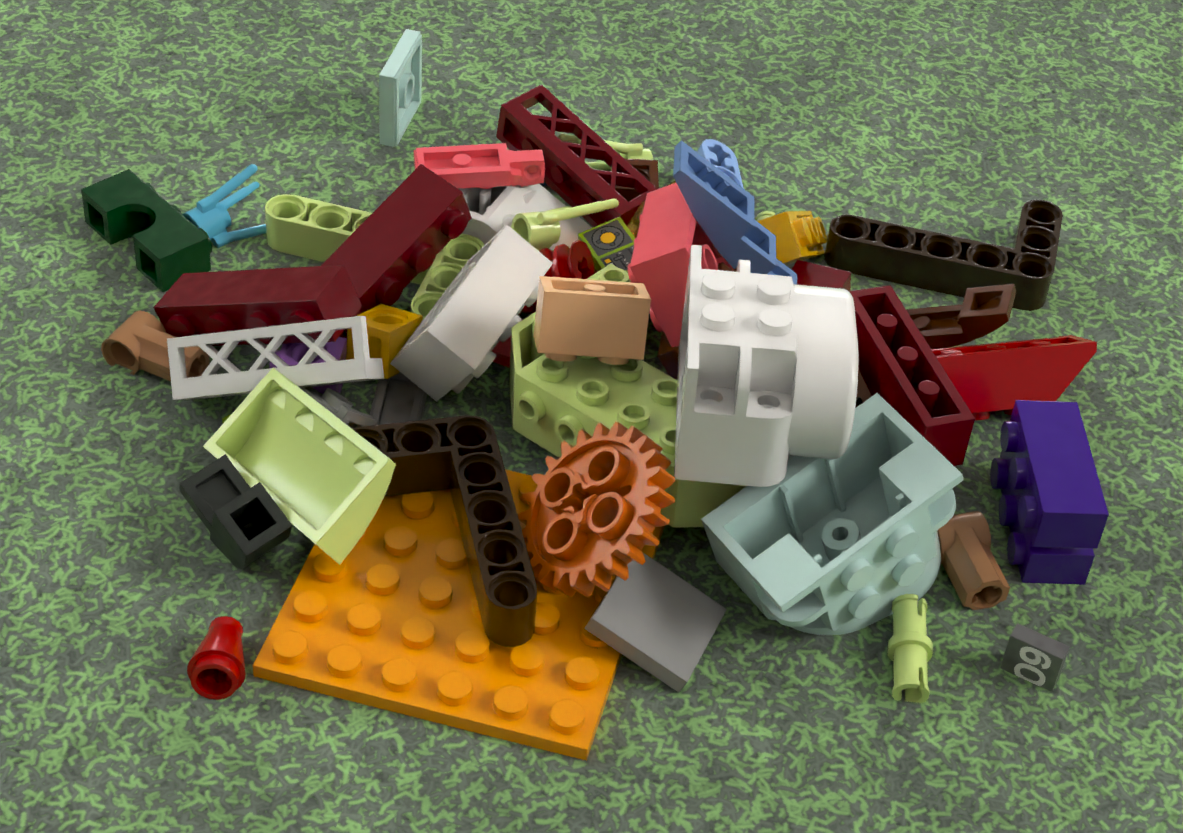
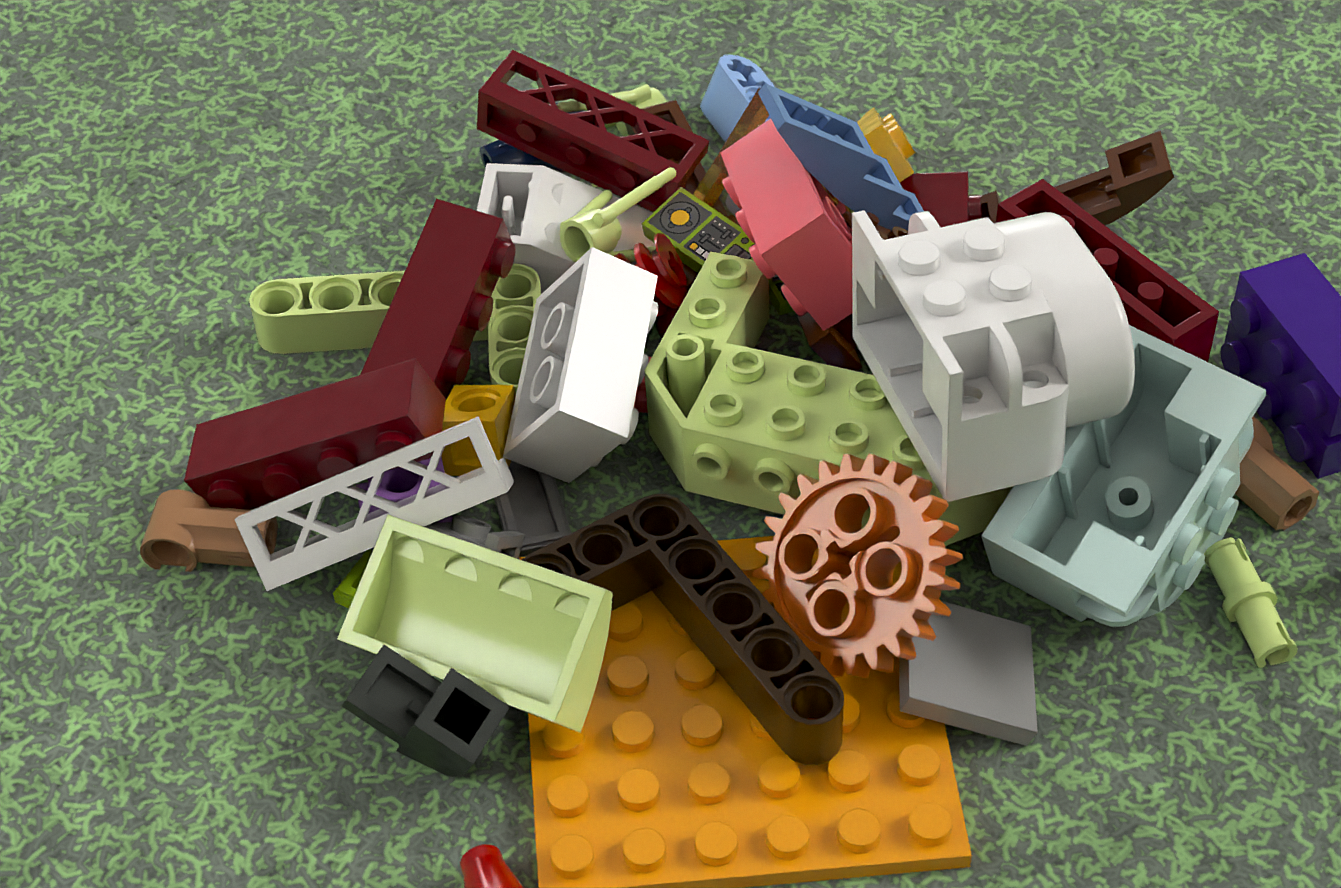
camera: 15 degrees left, 5 degrees up
(162, 237) = (154, 392): dark green arch -> none
(213, 215) = (184, 339): medium azure plant -> none
(400, 88) = (331, 101): light aqua tile -> none
(483, 165) = (491, 174): coral hinge -> none
(591, 319) = (753, 335): light nougat brick -> none
(951, 262) = (1053, 122): dark brown beam -> none
(1000, 373) = (1206, 228): red wedge -> none

